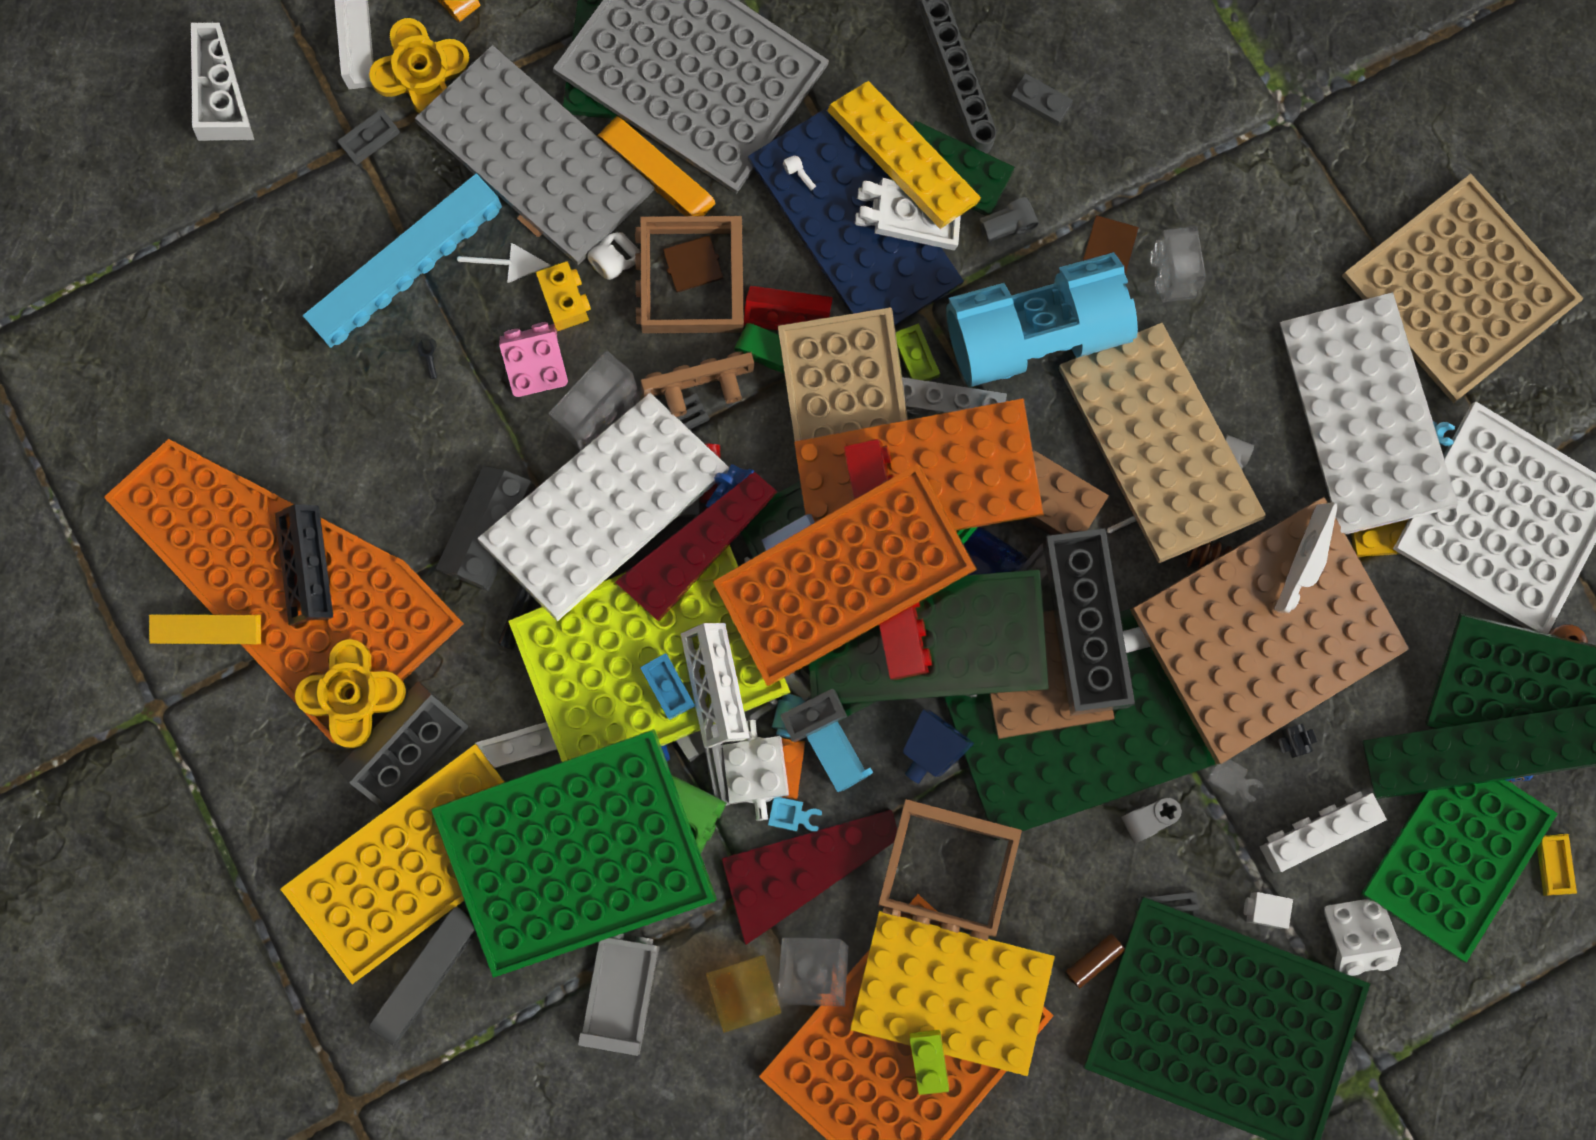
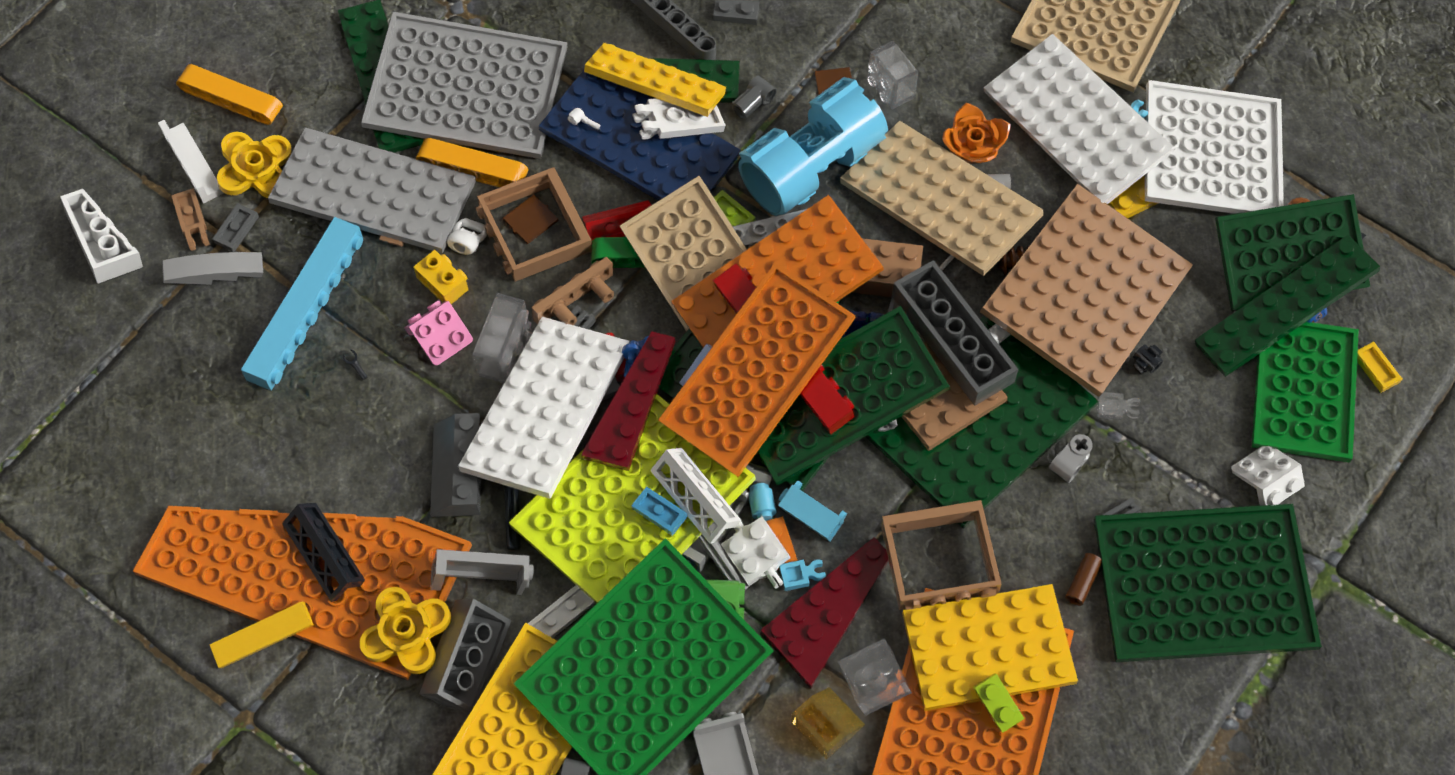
camera: 25 degrees left, 15 degrees down
(324, 175) = (212, 266): none -> light grey slope
(326, 103) = (190, 216): none -> medium nougat hinge
(416, 641) = (481, 566): none -> light grey panel
(520, 263) = (395, 271): white piece -> none
(813, 715) = (781, 487): dark grey plate -> none
(934, 746) = (884, 475): dark blue torso -> none
(1241, 363) = (969, 125): none -> orange brick
(1268, 910) = (1191, 485): white brick -> none
(1310, 556) = (1089, 220): white piece -> none
(1322, 833) = (1201, 413): white brick -> none

